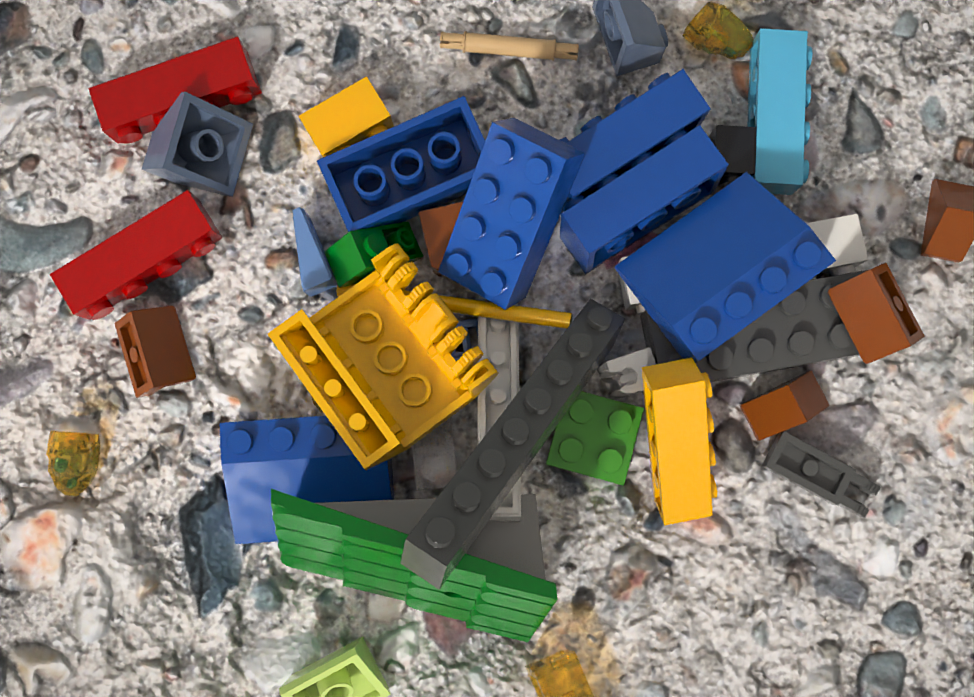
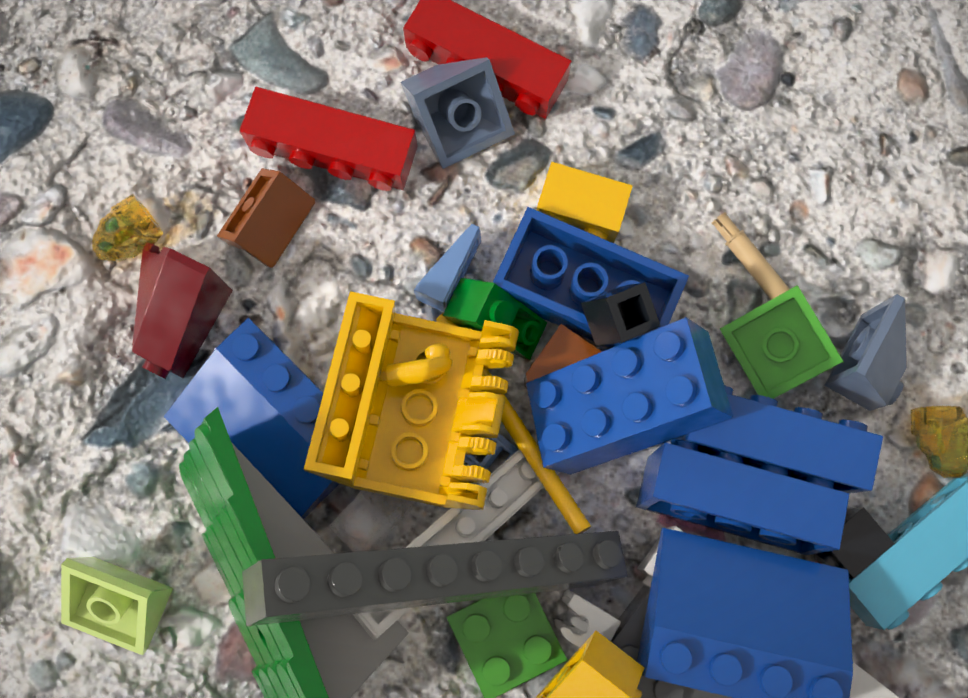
camera: 45 degrees right, 5 degrees down
(164, 470) = (174, 309): none -> dark red slope
(366, 334) = (419, 371): none -> yellow arm
(450, 164) = (620, 314): none -> black brick
(564, 78) = (781, 344): none -> bright green plate

